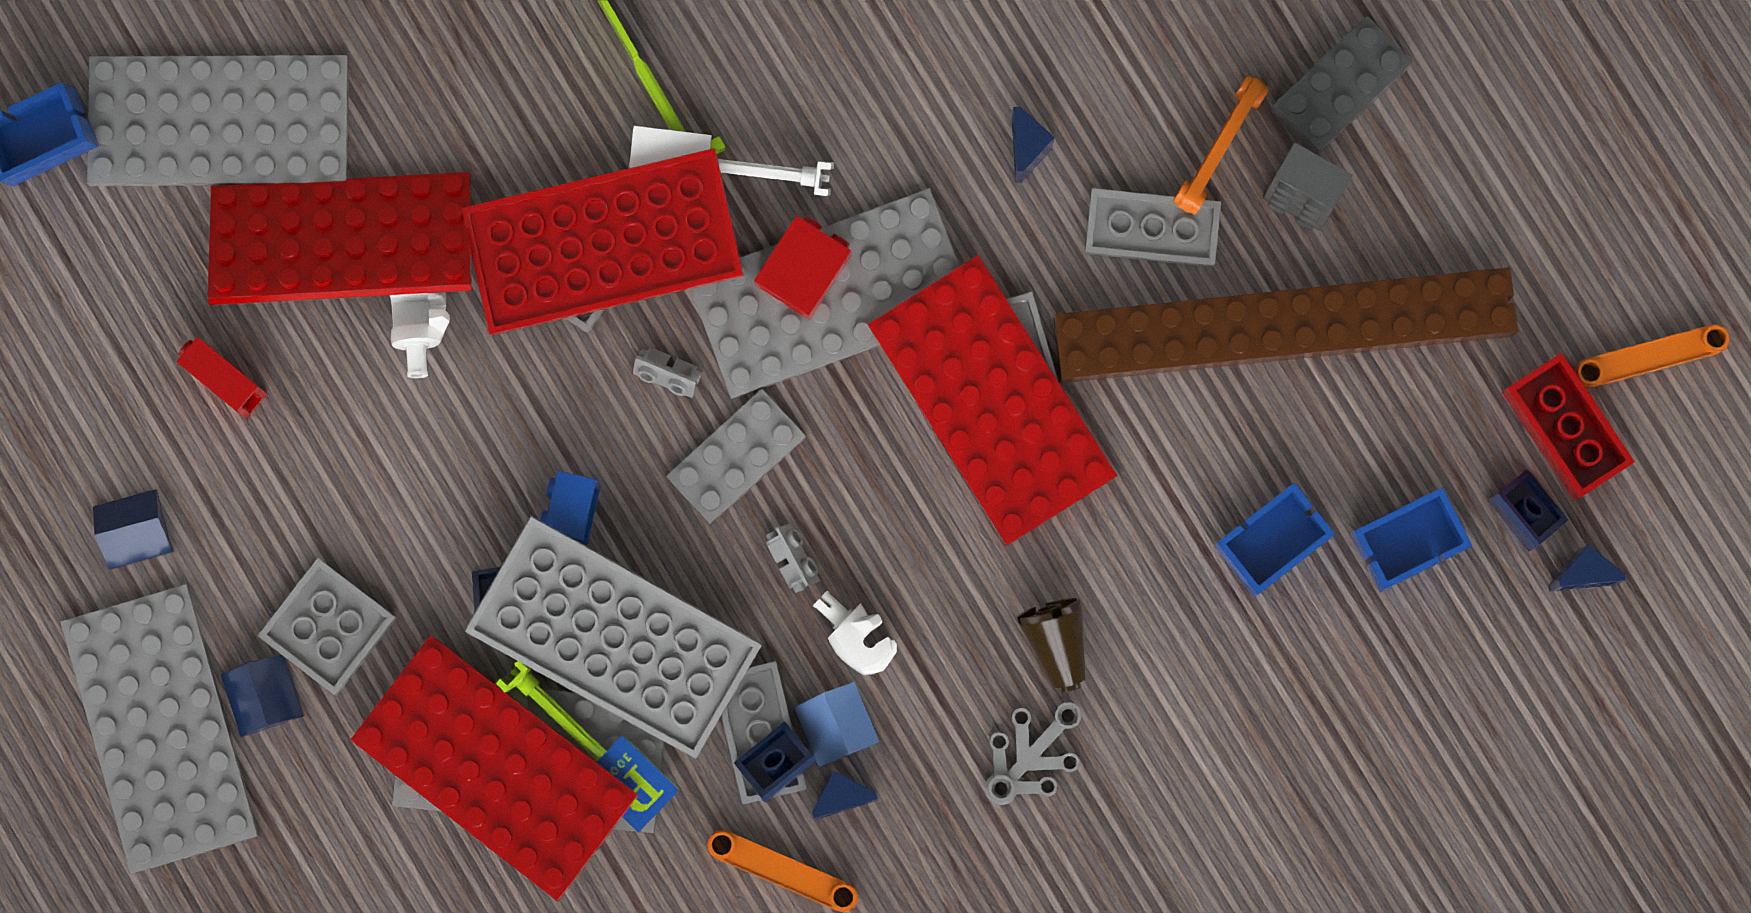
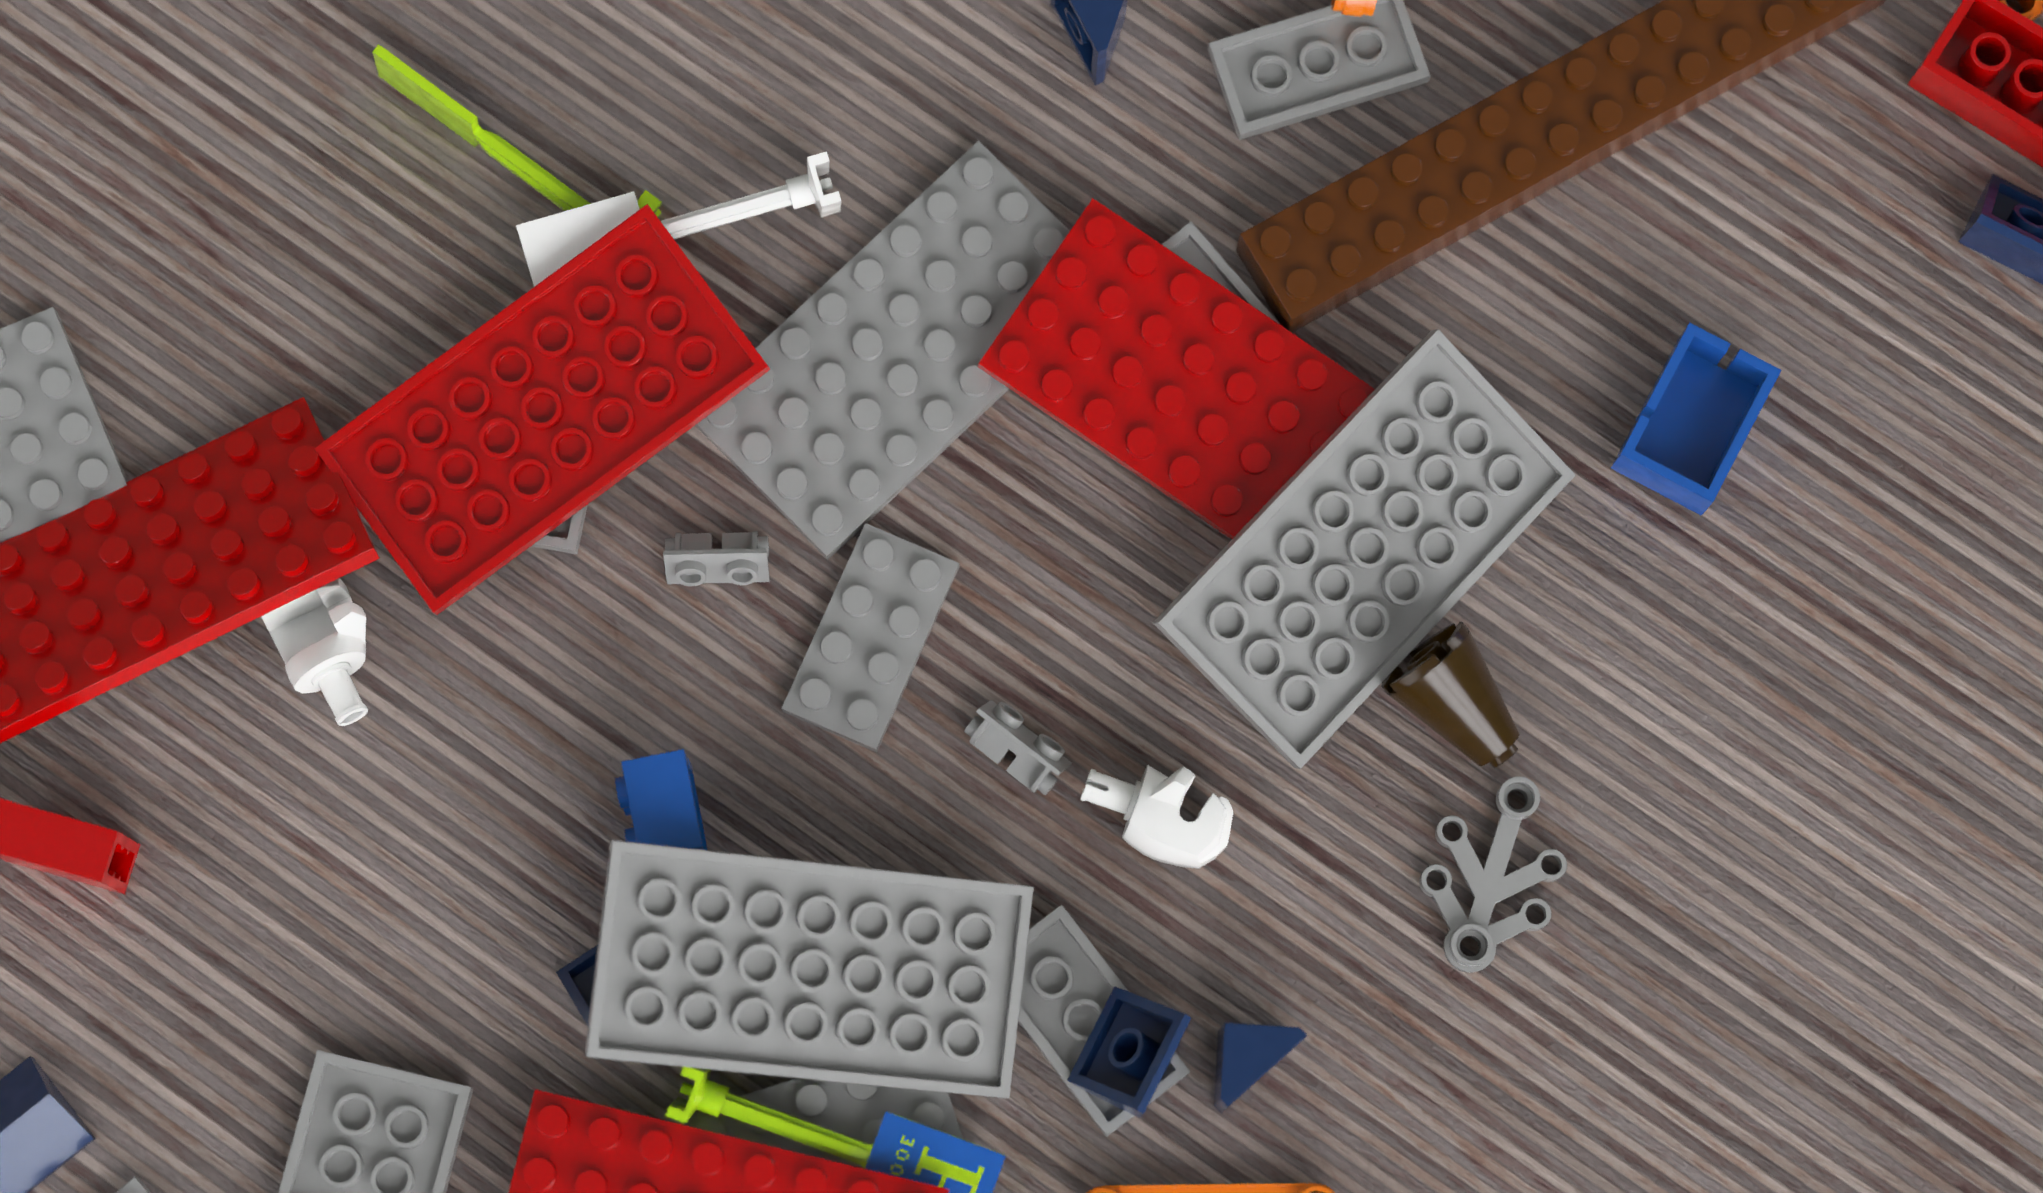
camera: 30 degrees left, 5 degrees down
(803, 266) = (849, 321): red brick -> none
(836, 724) = (1189, 958): medium blue slope -> none
(1044, 532) = (1364, 549): none -> light grey plate
(1411, 539) = (1883, 335): blue piece -> none

